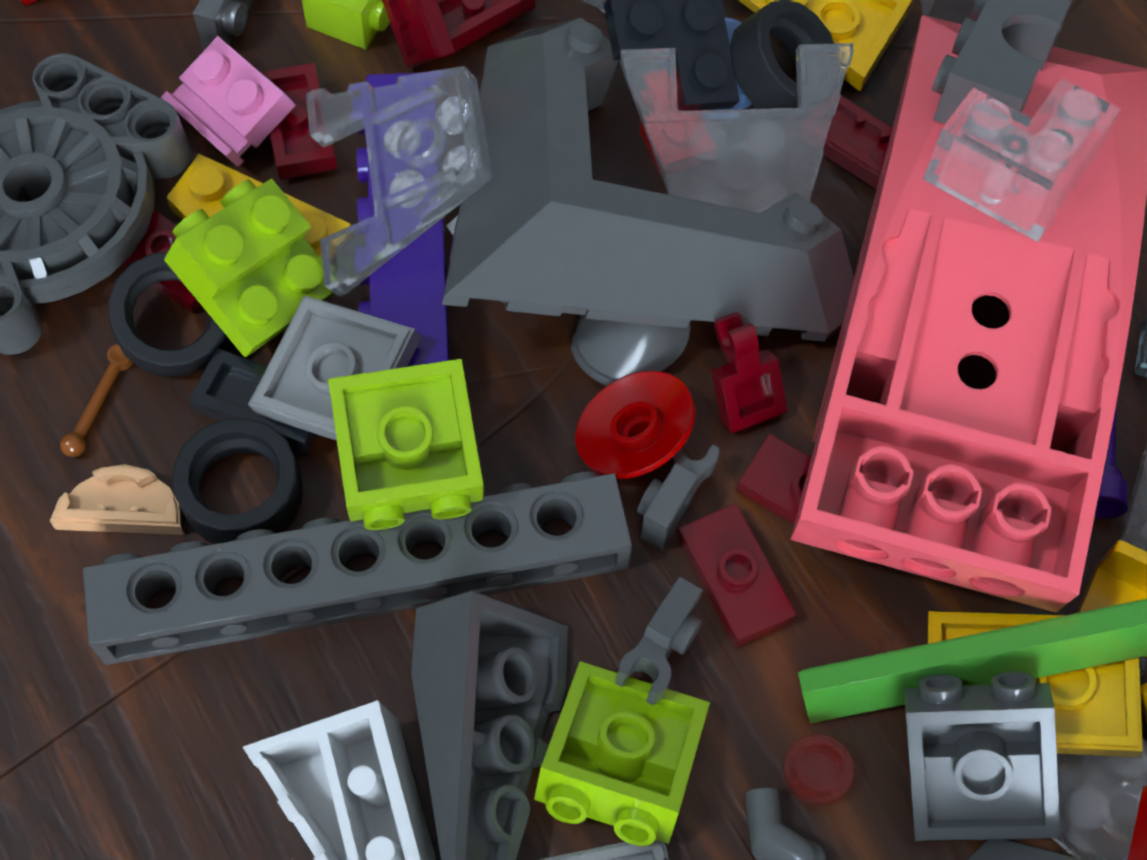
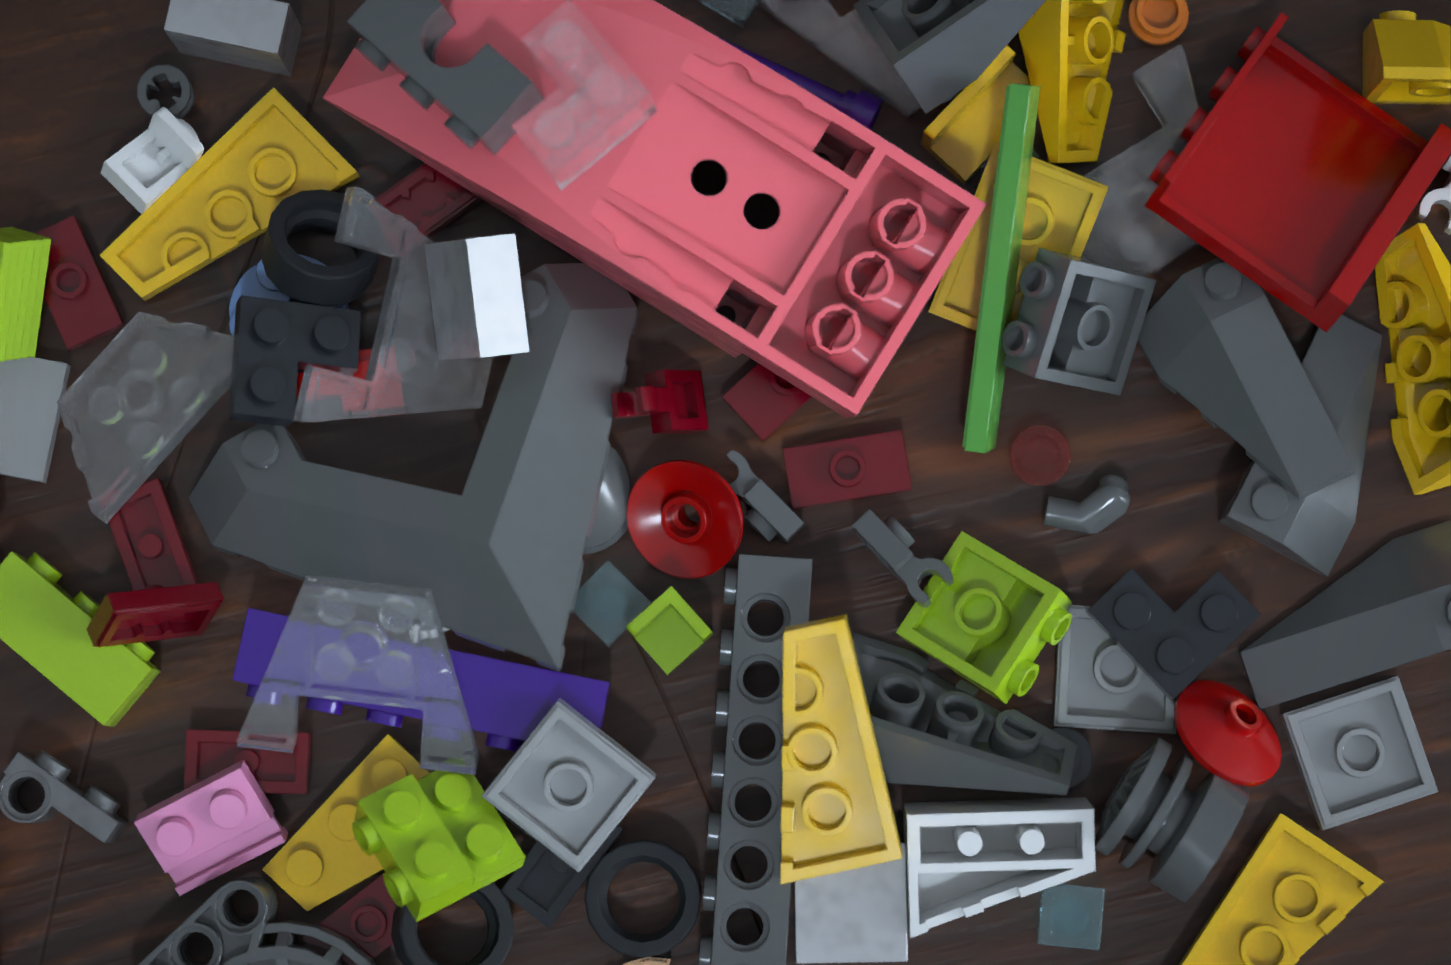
camera: 70 degrees left, 20 degrees up
(269, 681) = (853, 915): none -> flat silver piece
(397, 611) = (832, 772): none -> yellow wing
(406, 443) = (676, 735): lime plate -> none
(521, 438) = (669, 630): none -> lime panel
(529, 381) = (609, 603): none -> clear light blue plate
(790, 163) = (476, 297): none -> flat silver piece

